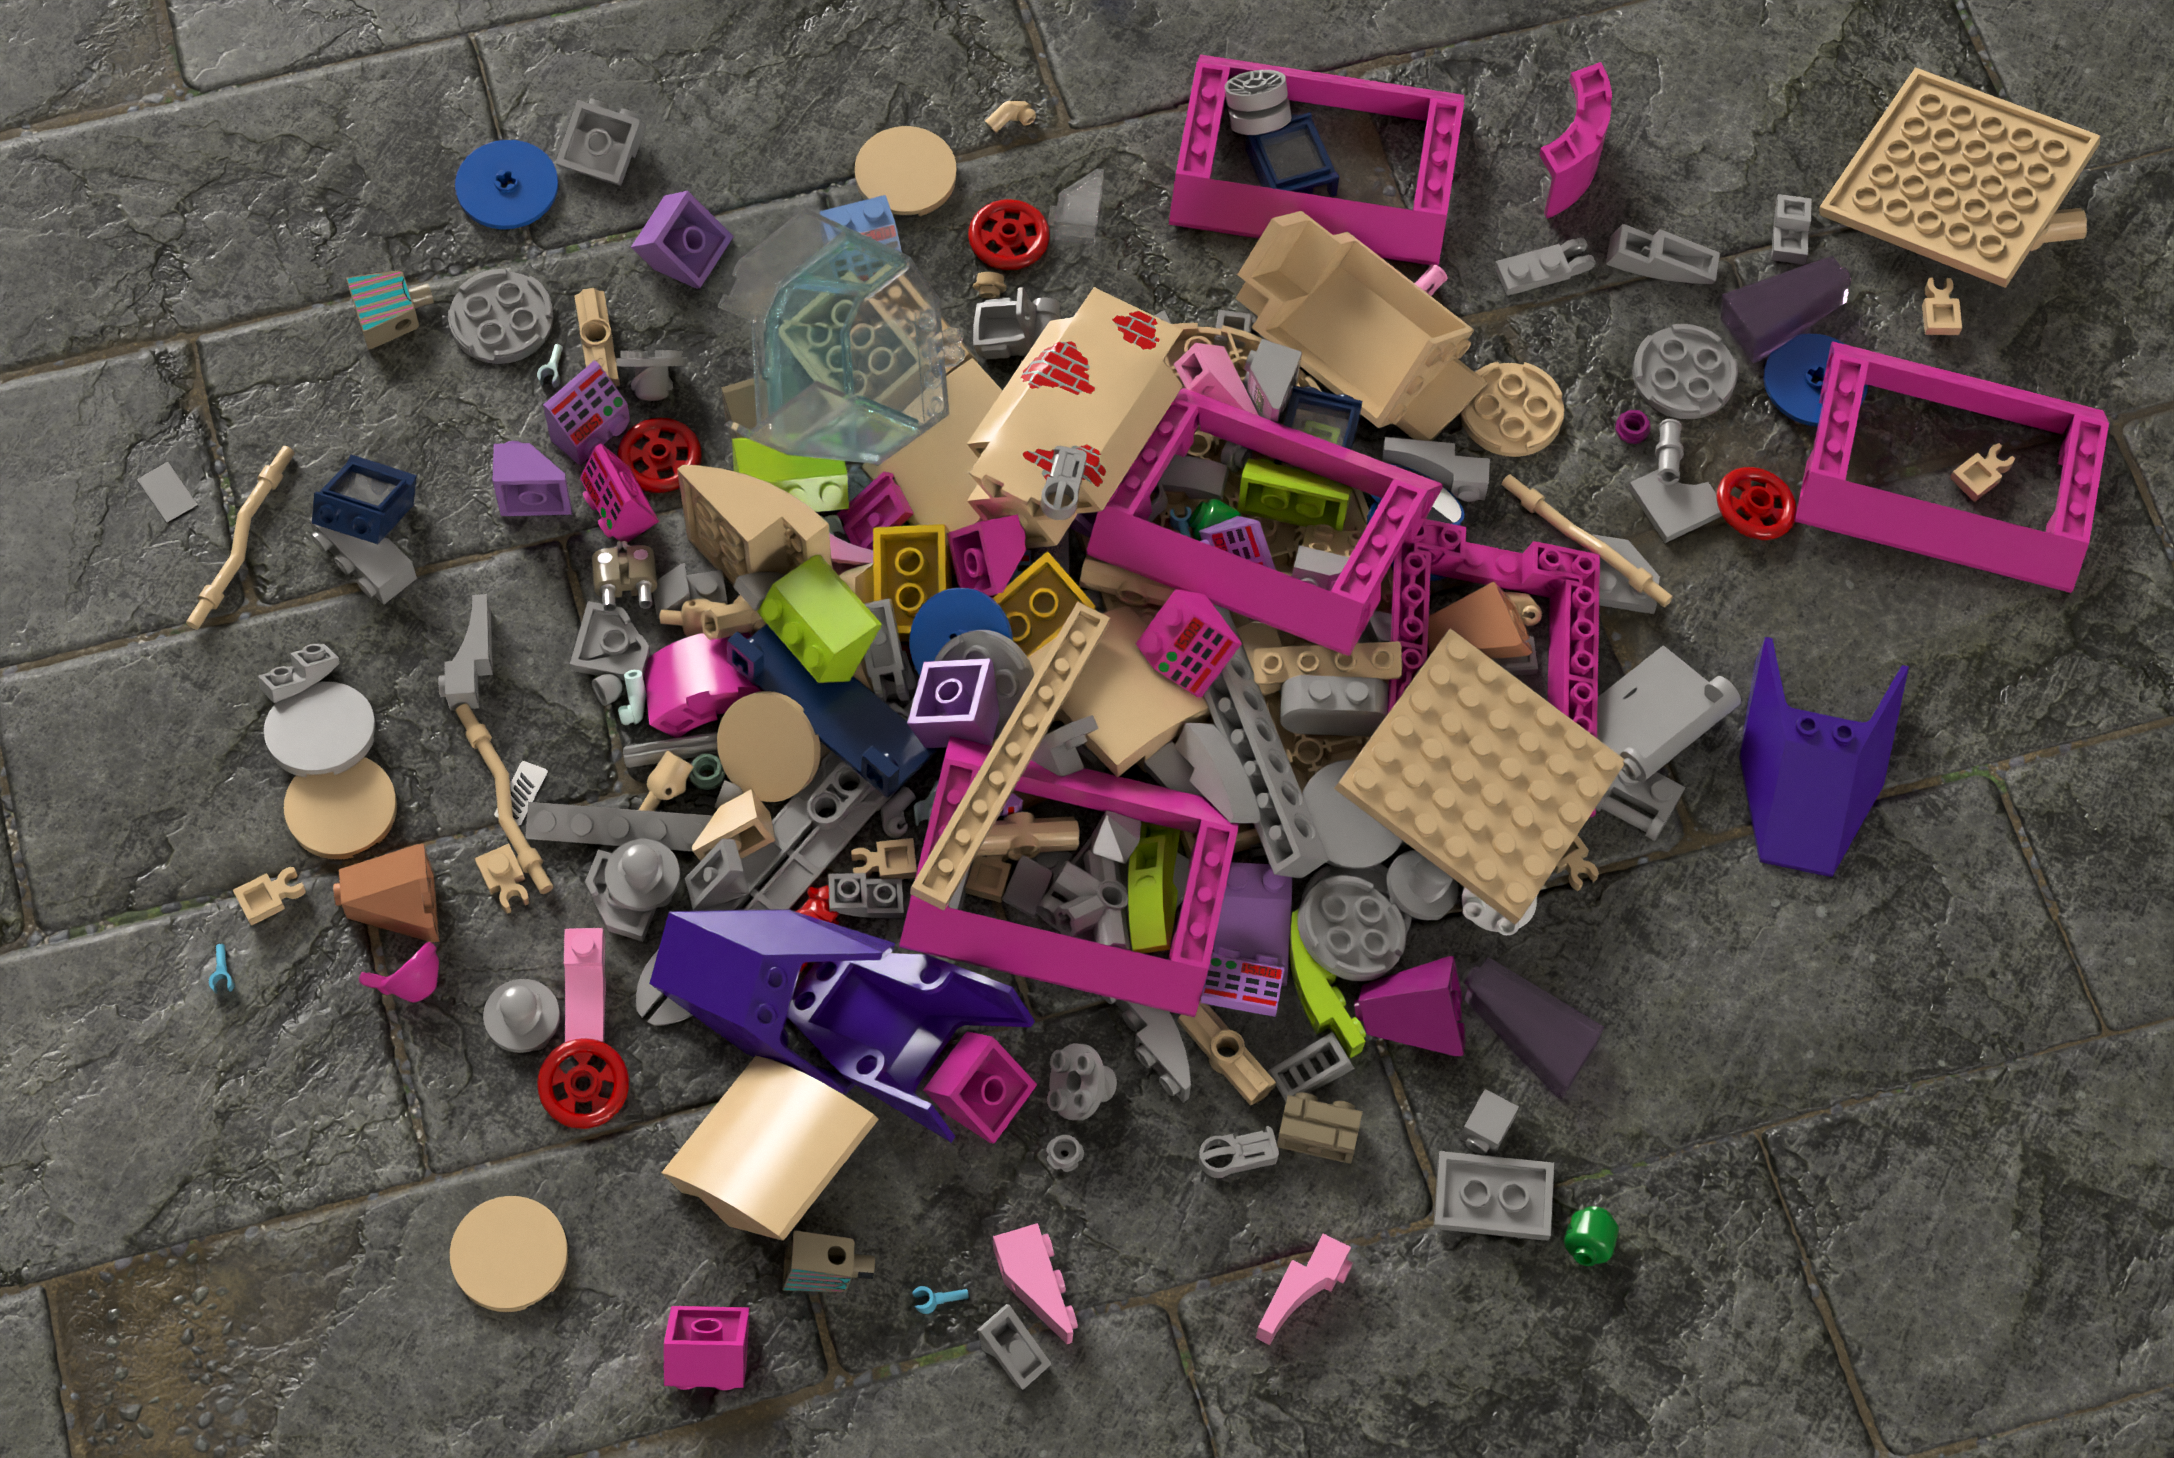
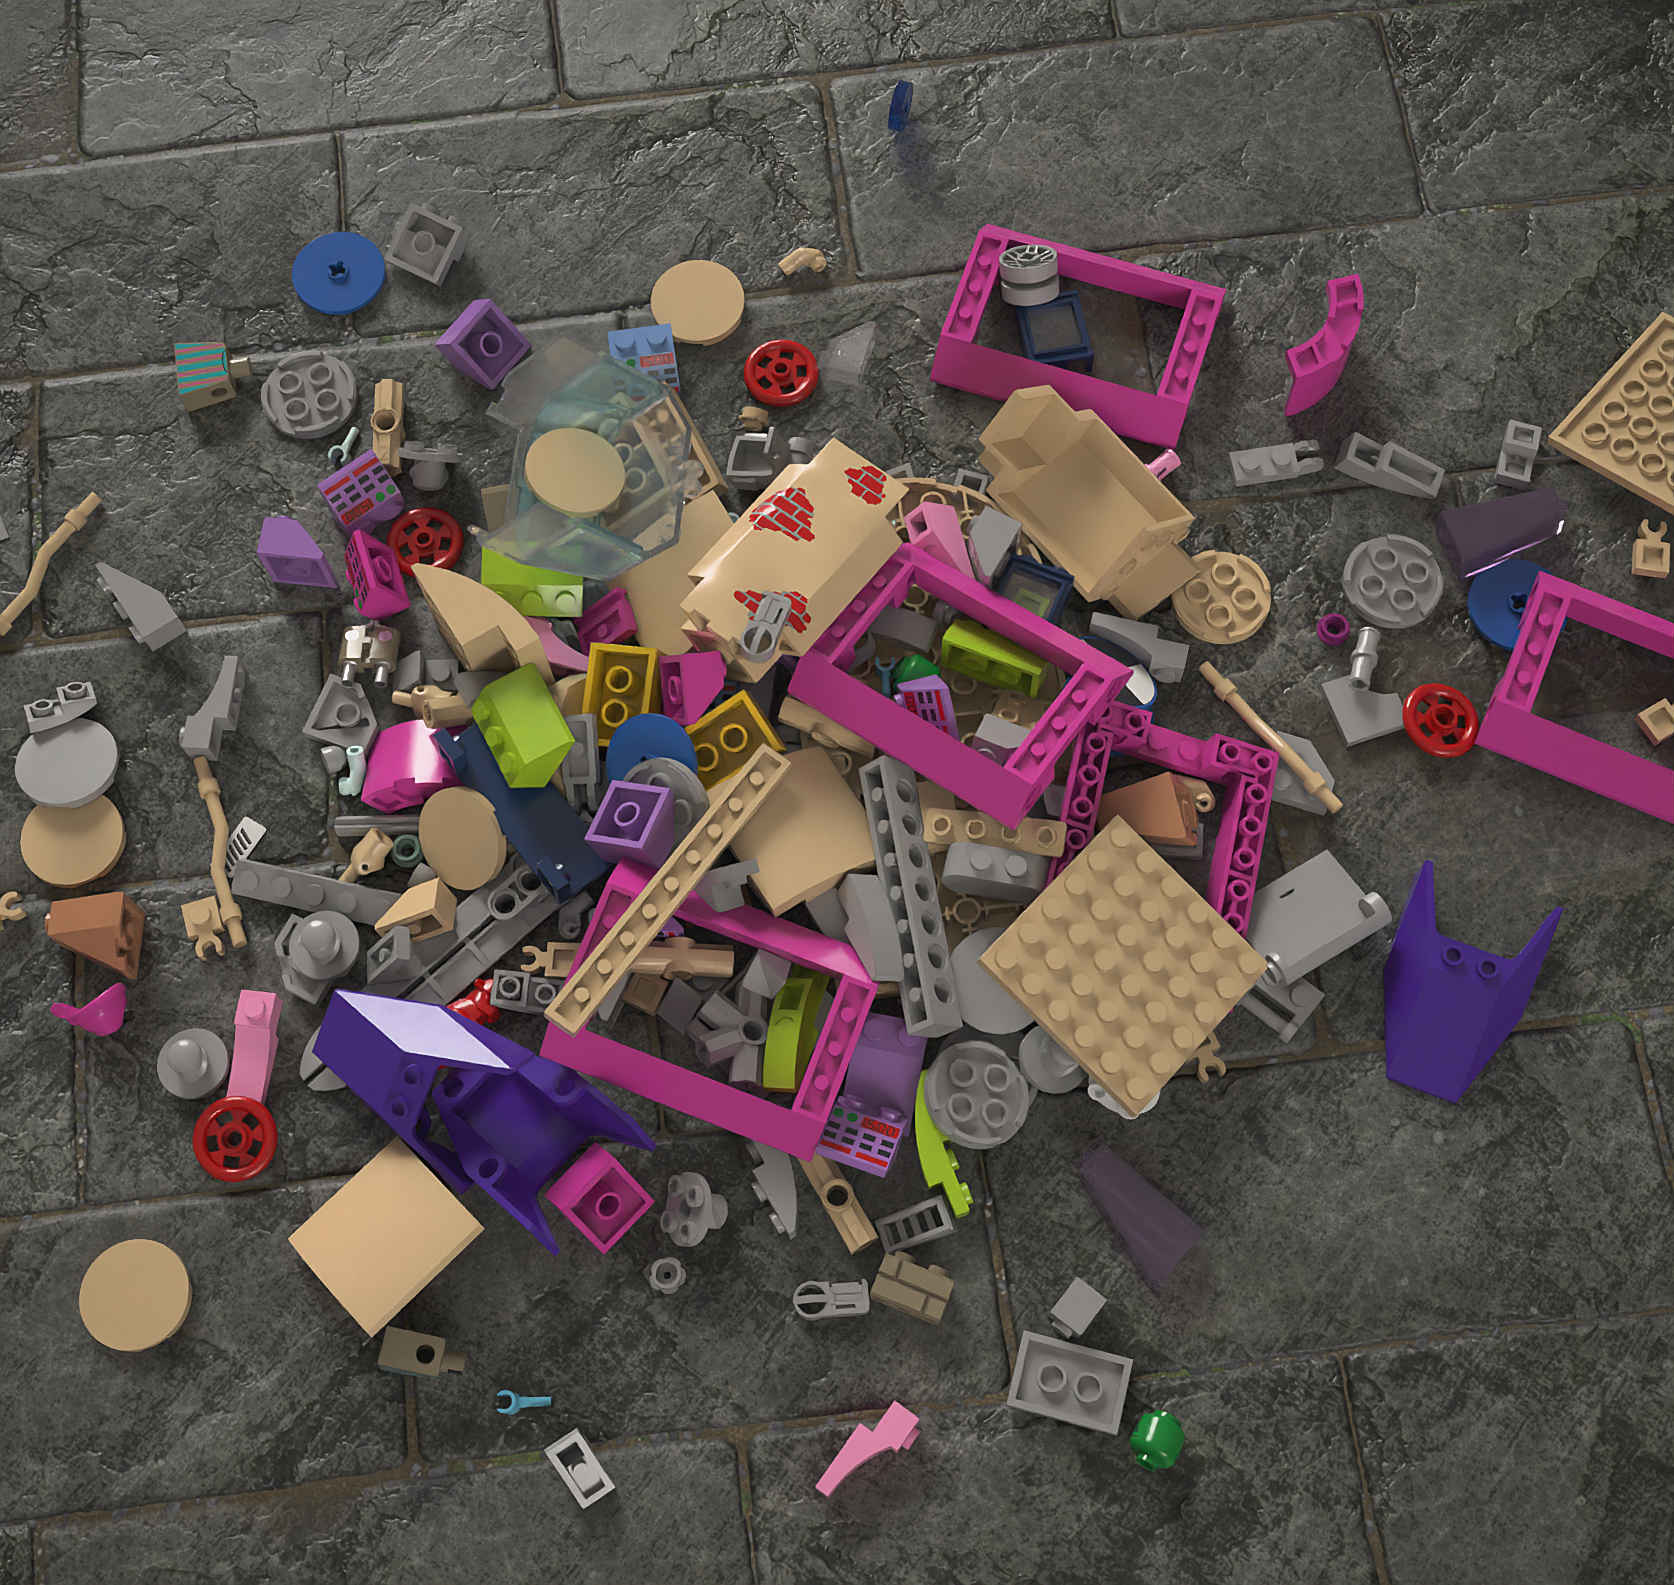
camera: 15 degrees right, 5 degrees up
(364, 499) = (147, 553): dark blue window -> none
(706, 1347) = (295, 1418): dark pink slope -> none
(821, 350) = (574, 472): none -> tan tile
(1030, 1276) = (608, 1386): bright pink slope -> none
(1189, 641) = (864, 793): dark pink slope -> none
(1416, 1007) = (1027, 1181): magenta slope -> none

